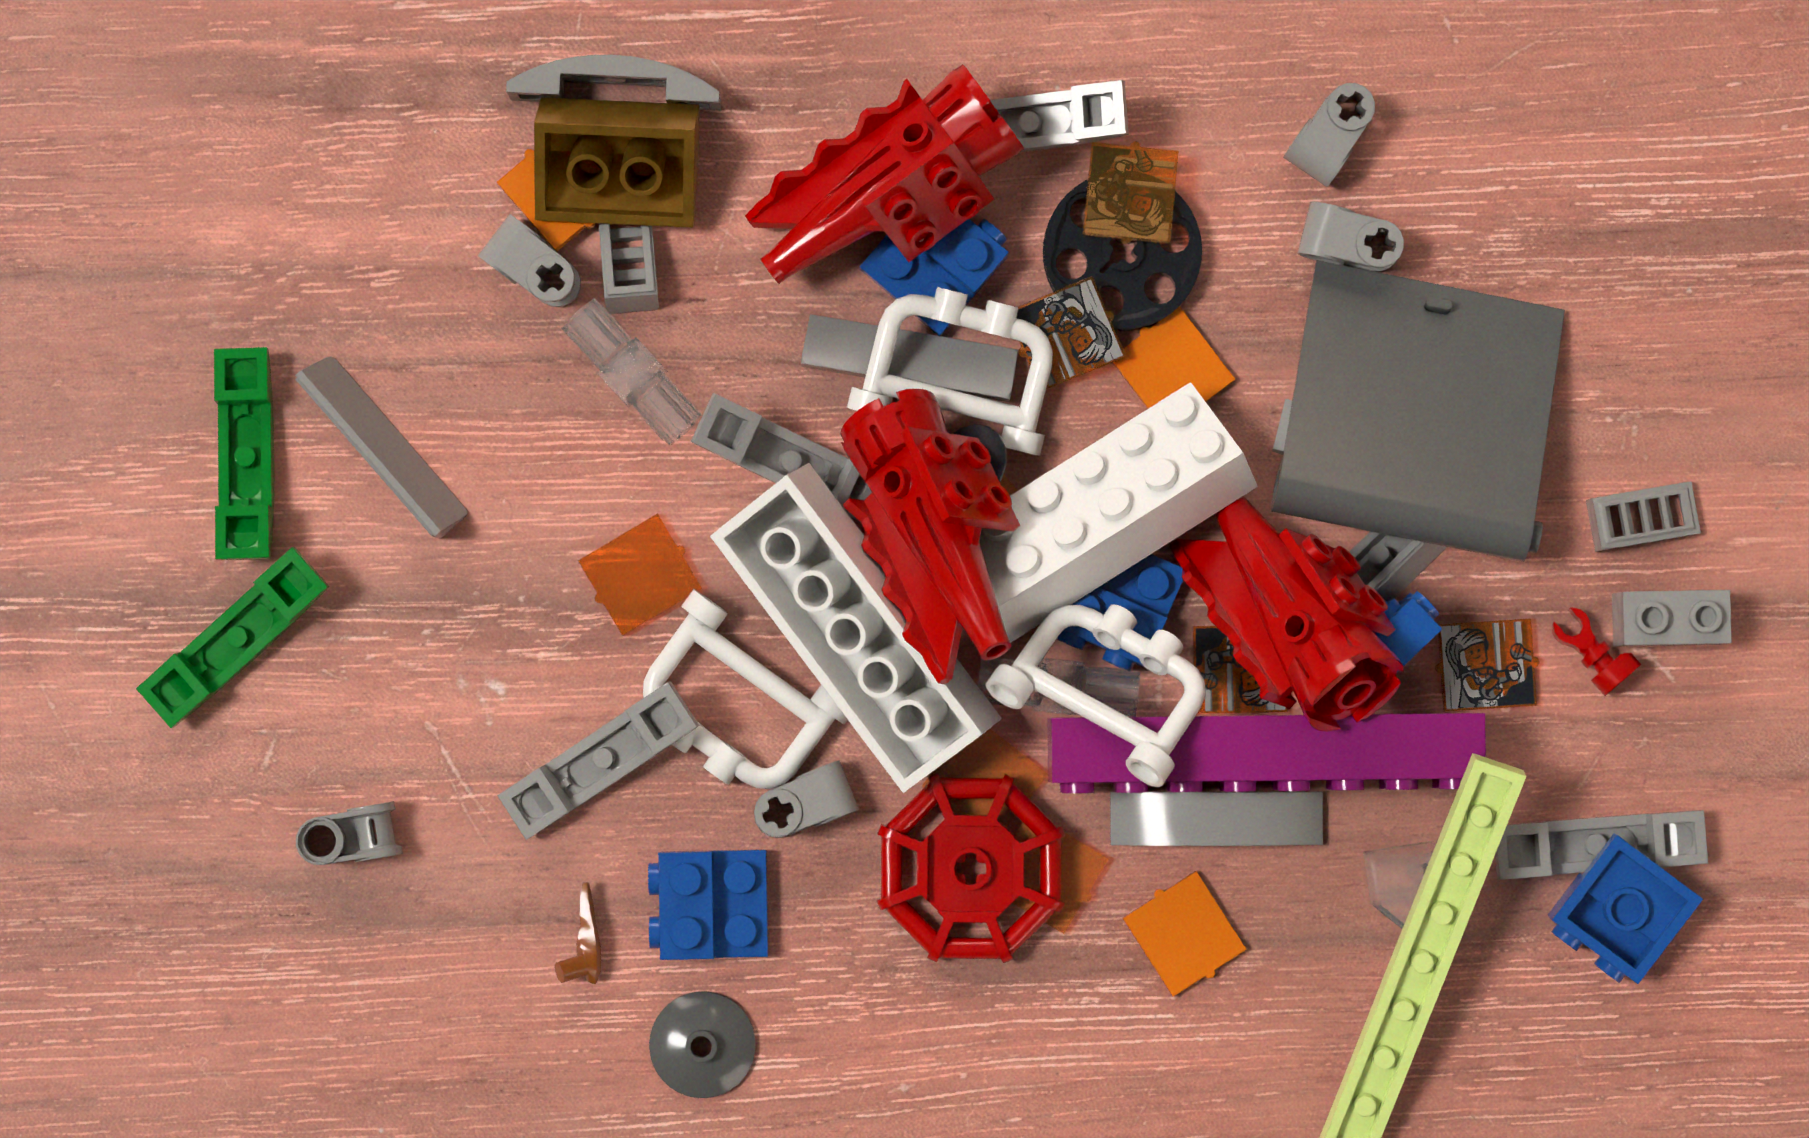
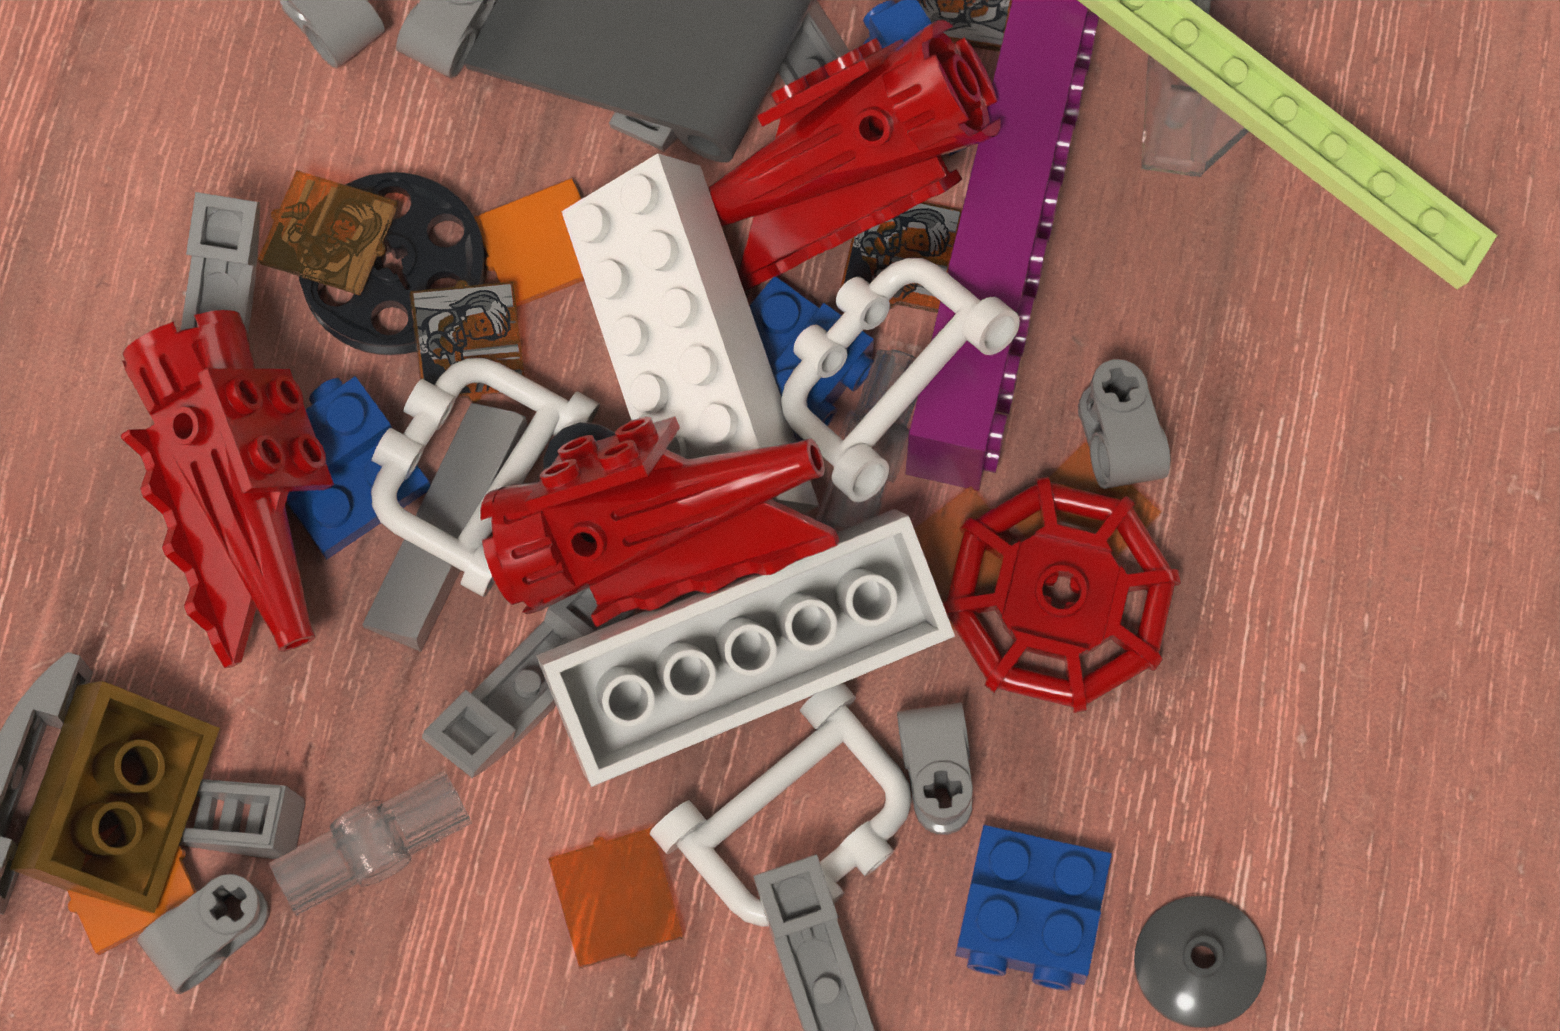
camera: 70 degrees left, 15 degrees down
(1114, 889) = (1123, 427): none -> light grey piece
(1184, 933) = (1195, 379): orange piece -> none
(1216, 818) = (1065, 317): light grey slope -> none

